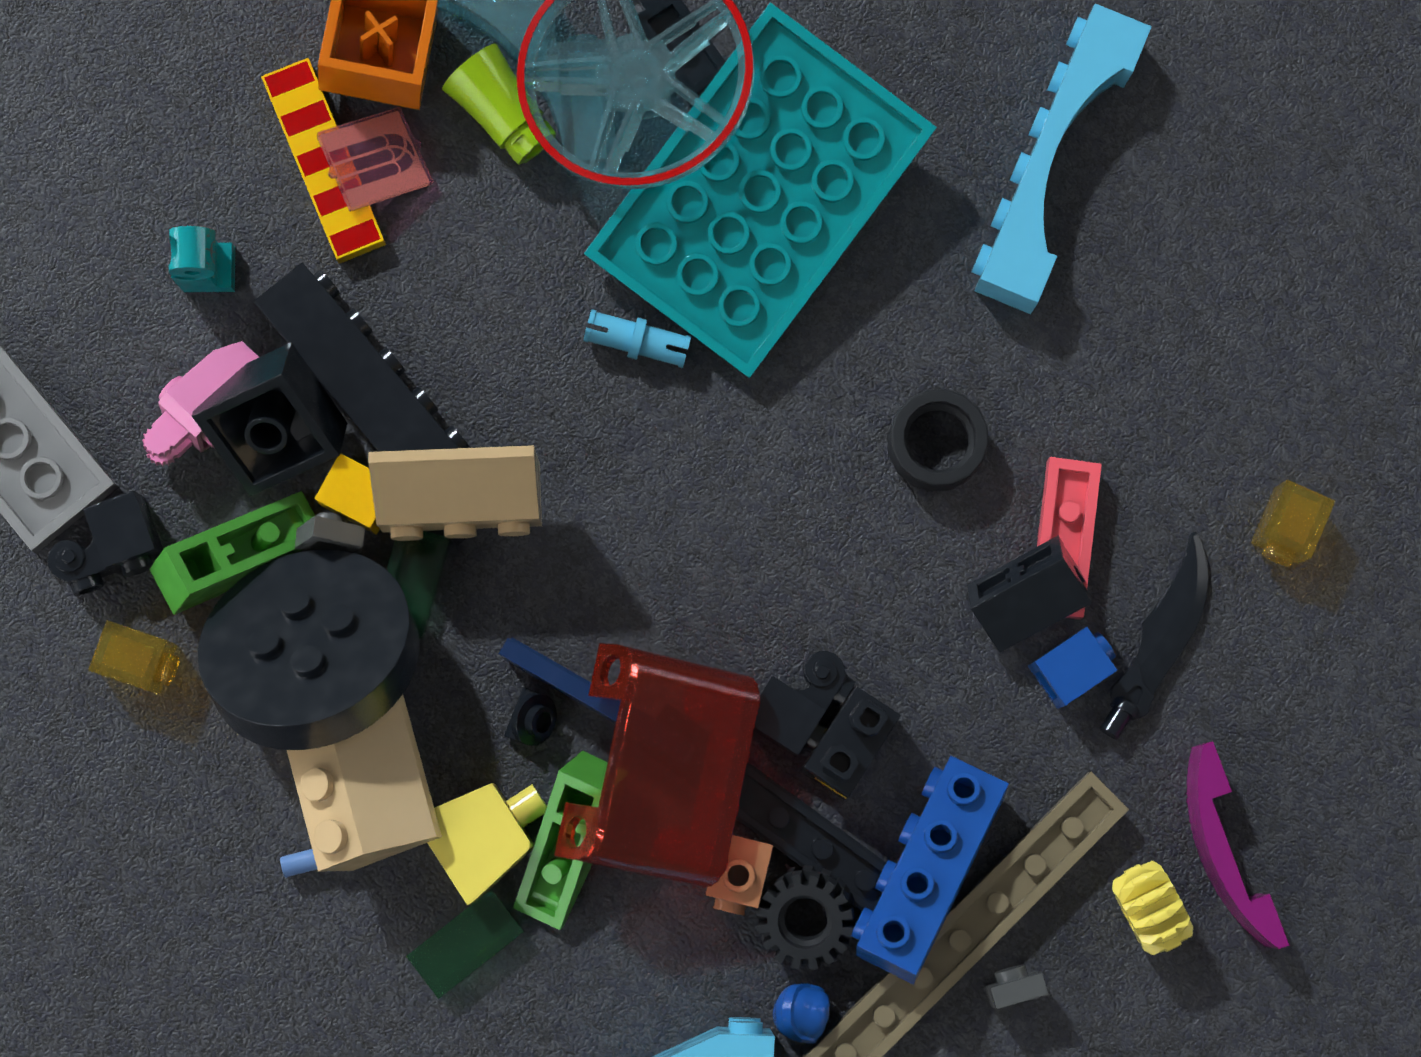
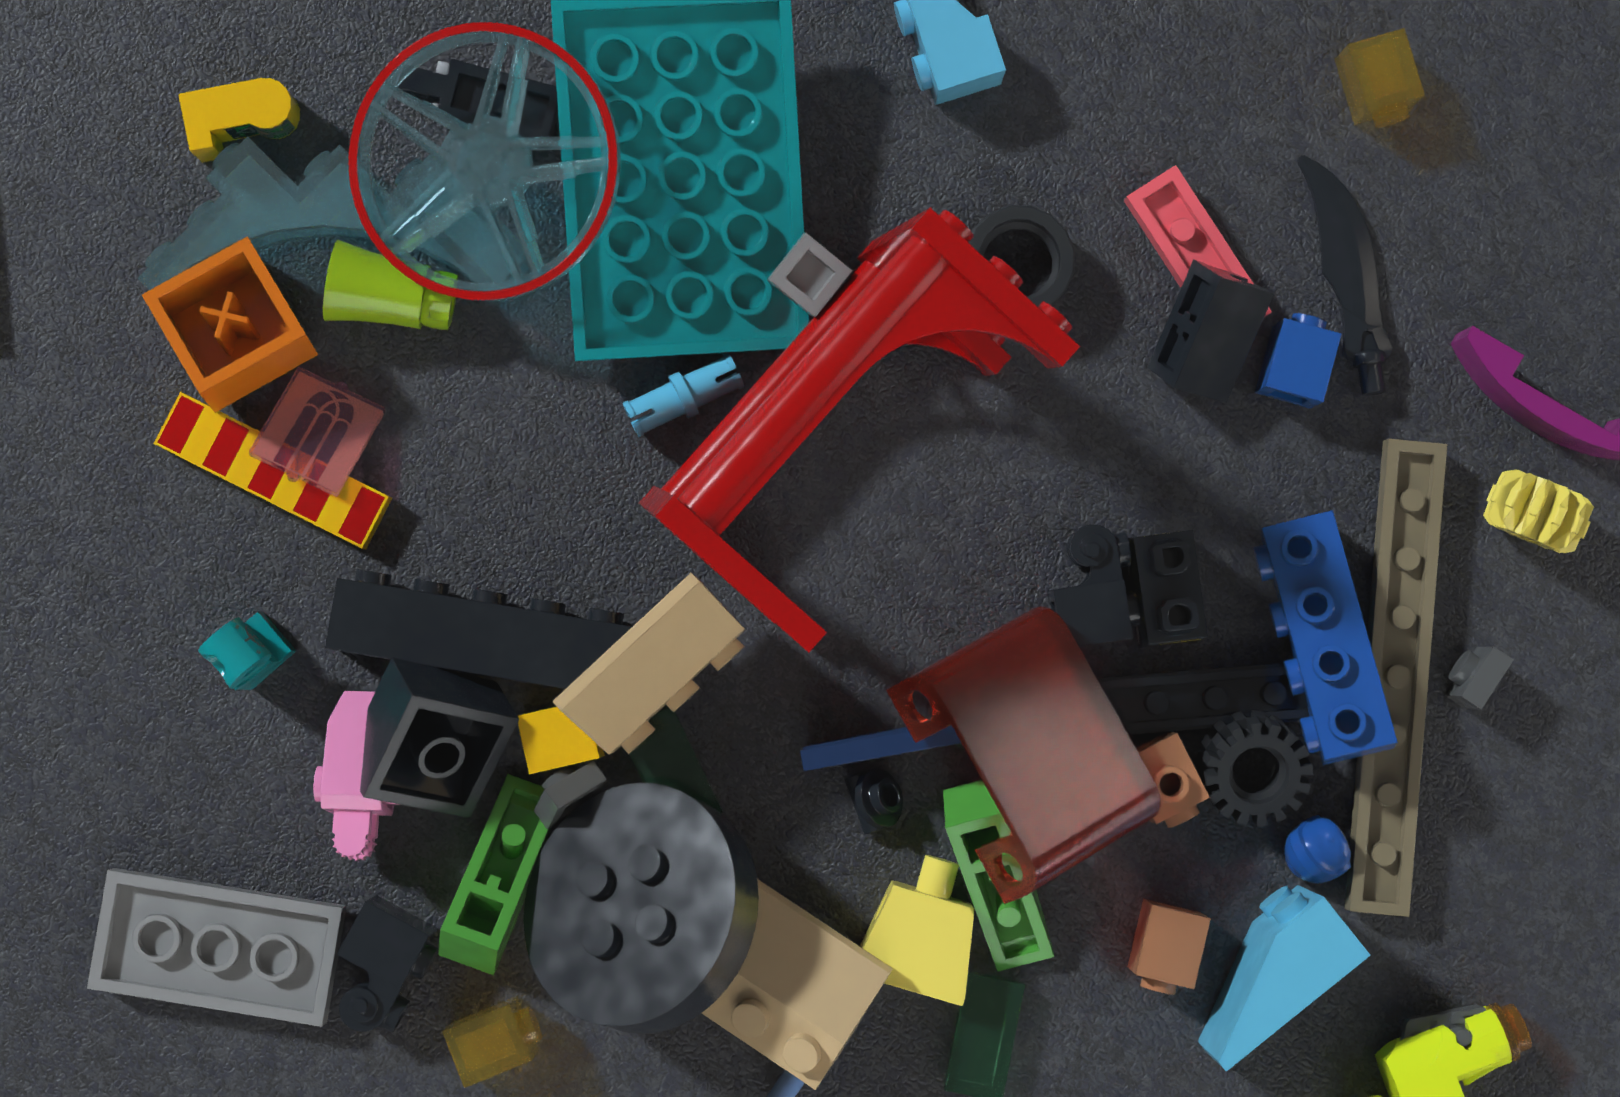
camera: 35 degrees left, 5 degrees up
(642, 989) = (1168, 946): none -> nougat brick
(788, 326) = (809, 275): none -> light grey plate
(830, 382) = (912, 288): none -> red arch

